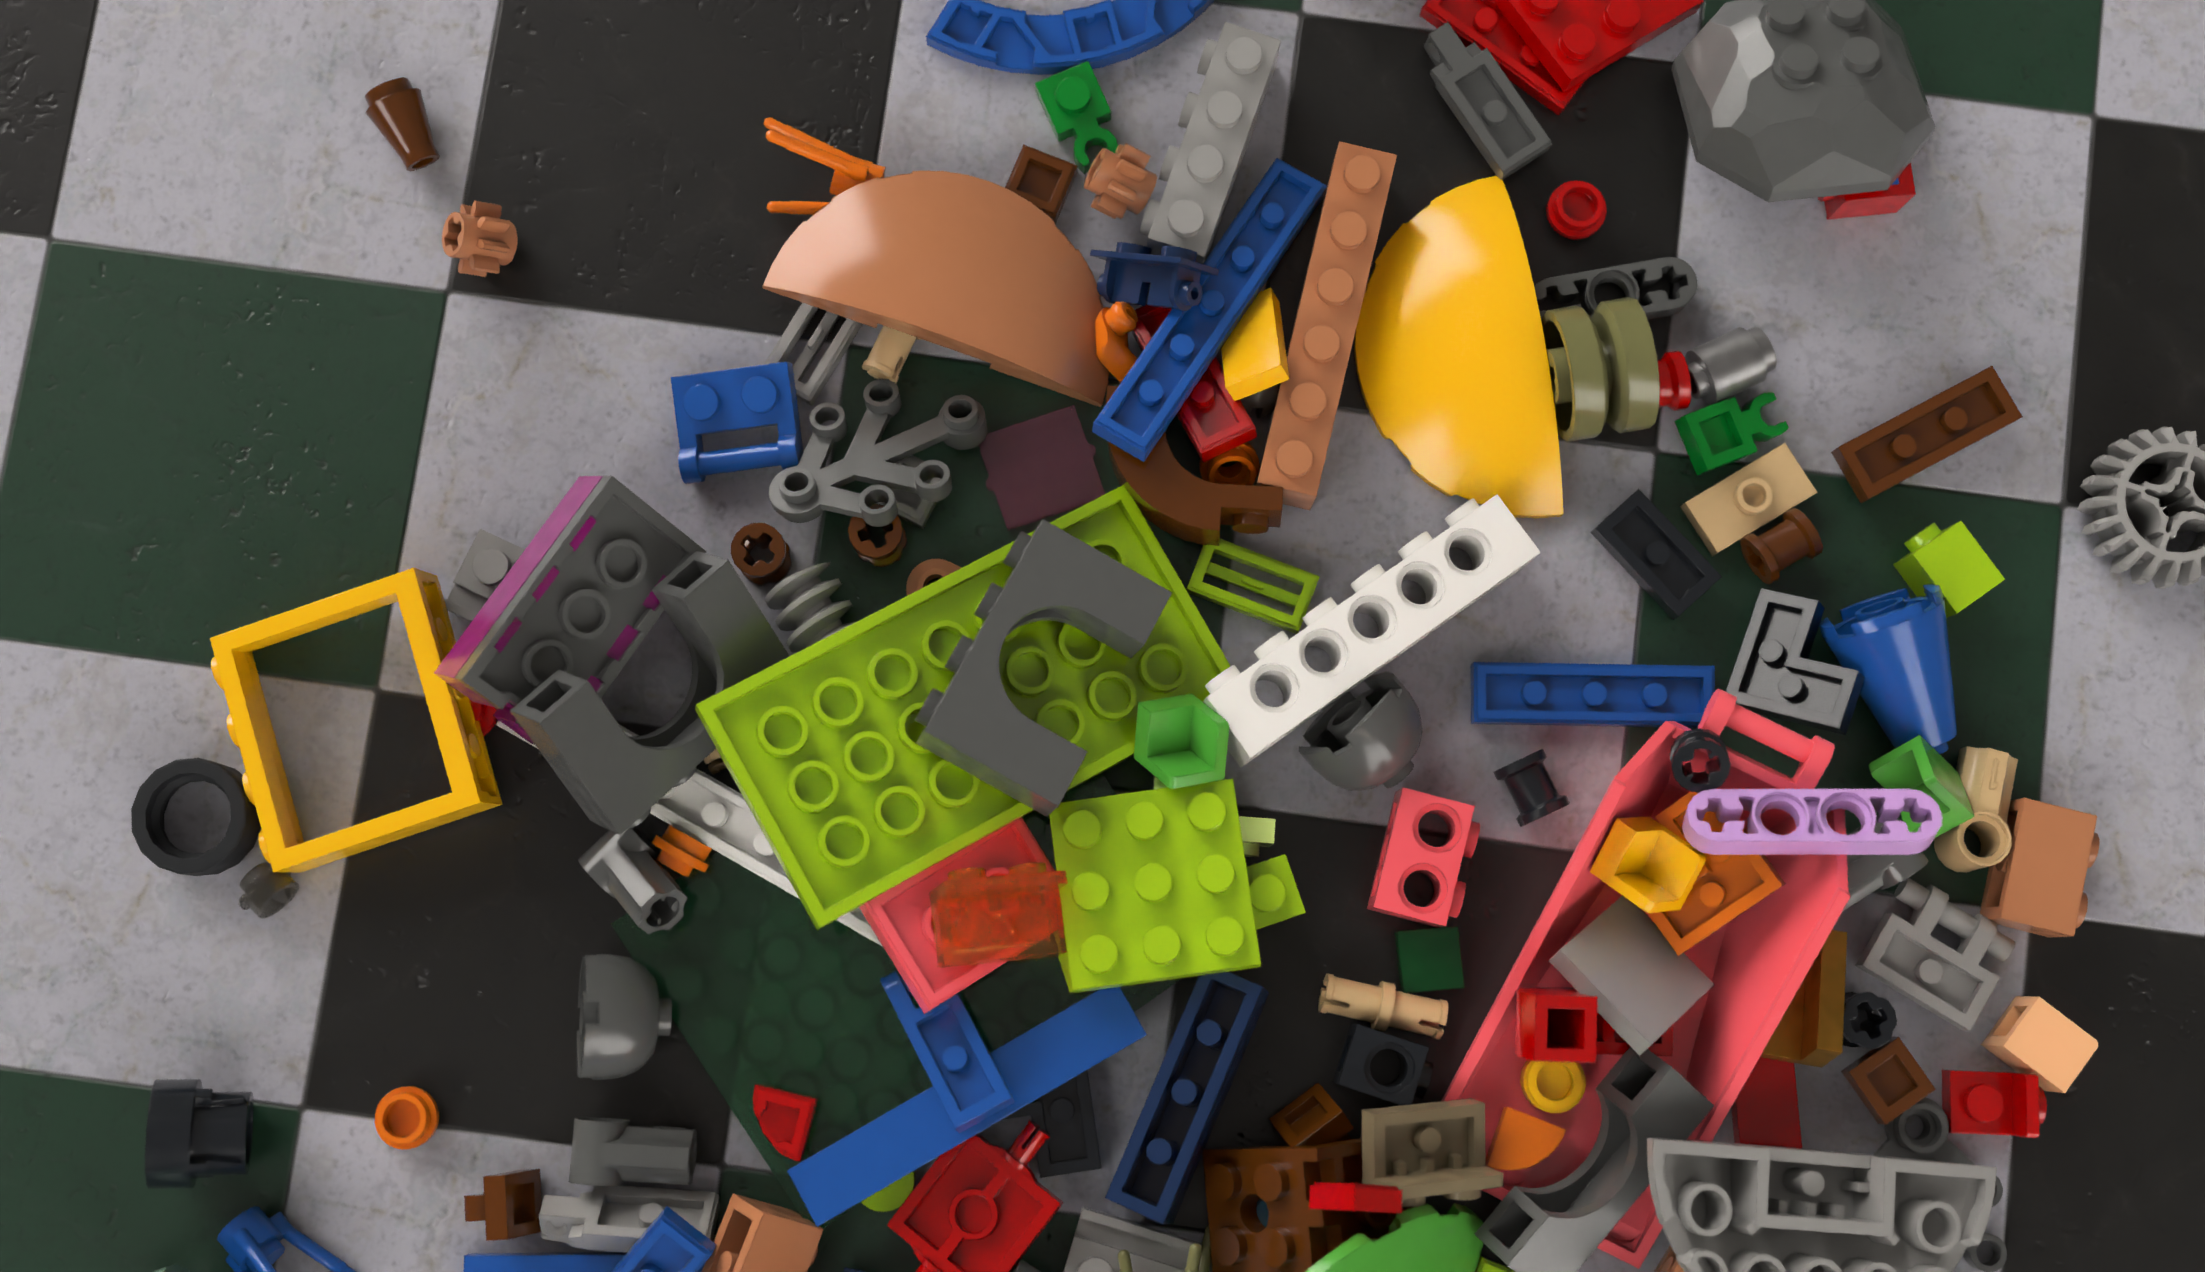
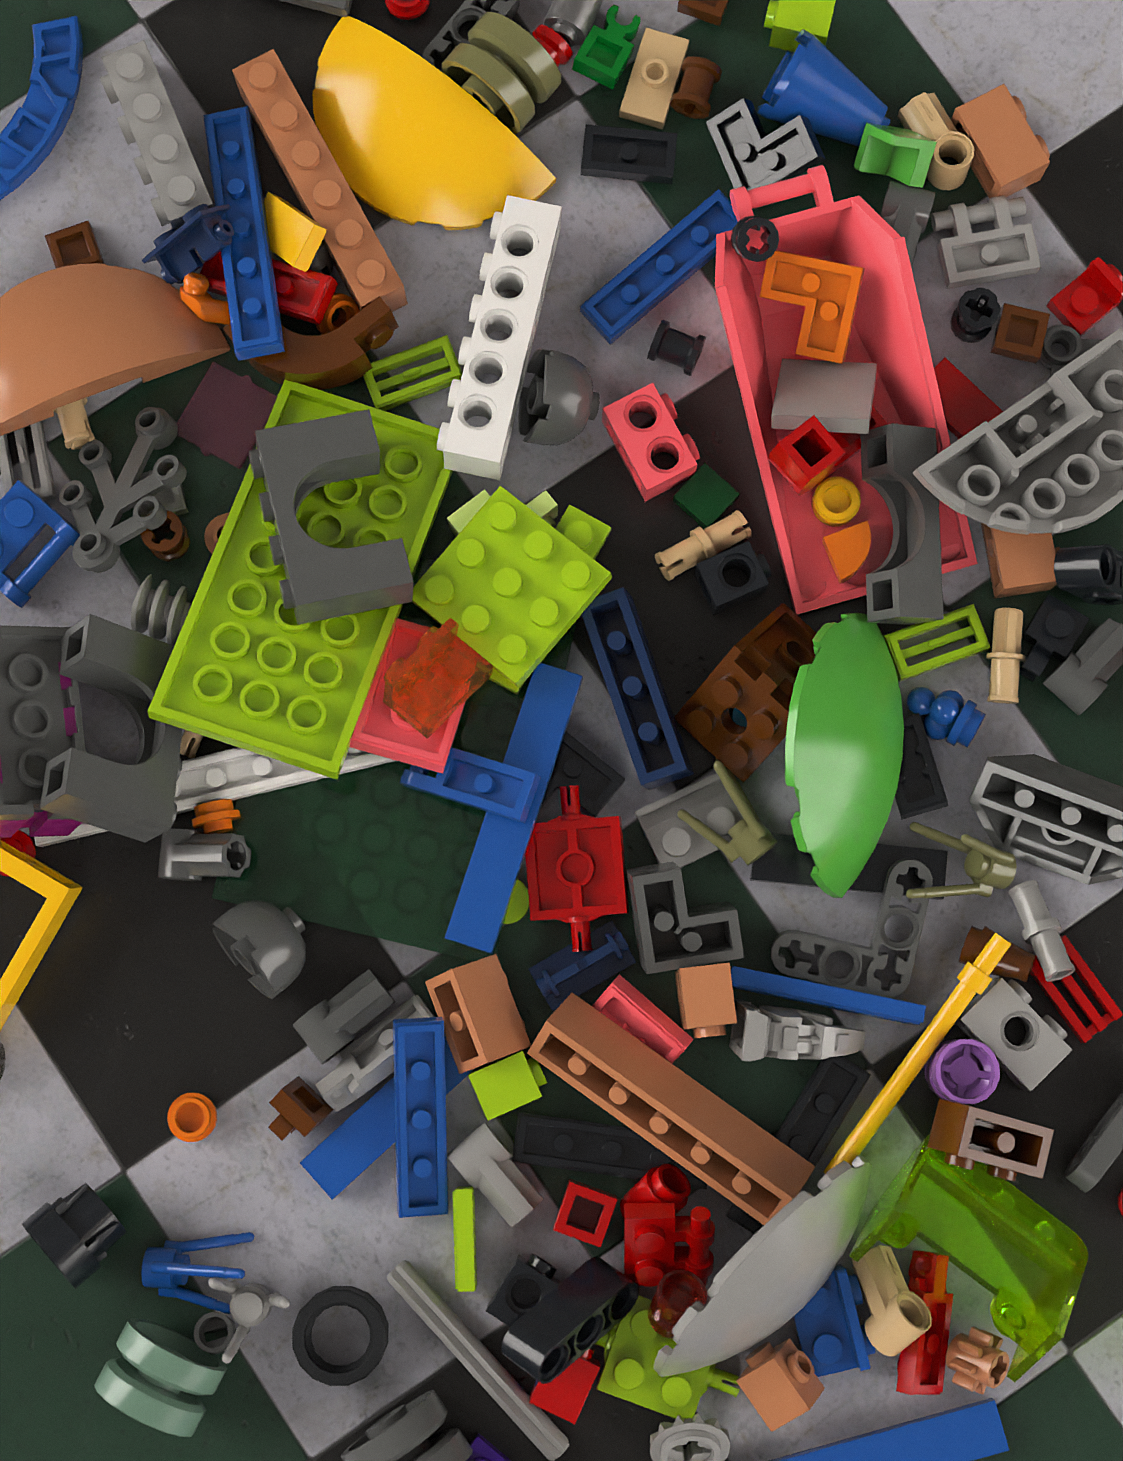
camera: 40 degrees left, 0 degrees up
(762, 536) = (94, 597): reddish brown bush -> none
(784, 1119) = (416, 912): red tile -> none
(1076, 109) = (58, 188): green plate -> none
(1120, 181) = (122, 205): nougat gear -> none
(1181, 741) = (451, 490): bright green panel -> none
(1312, 1120) = (717, 641): reddish brown tile -> none
(1355, 1197) = (780, 651): red tile -> none
(1428, 1150) = (797, 596): dark tan bracket -> none
(1648, 864) = (778, 324): yellow panel -> none
(1812, 830) = (852, 221): lavender beam -> none
(1815, 1018) = (949, 335): pearl gold panel -> none
(2041, 1042) = (1083, 236): light nougat panel -> none

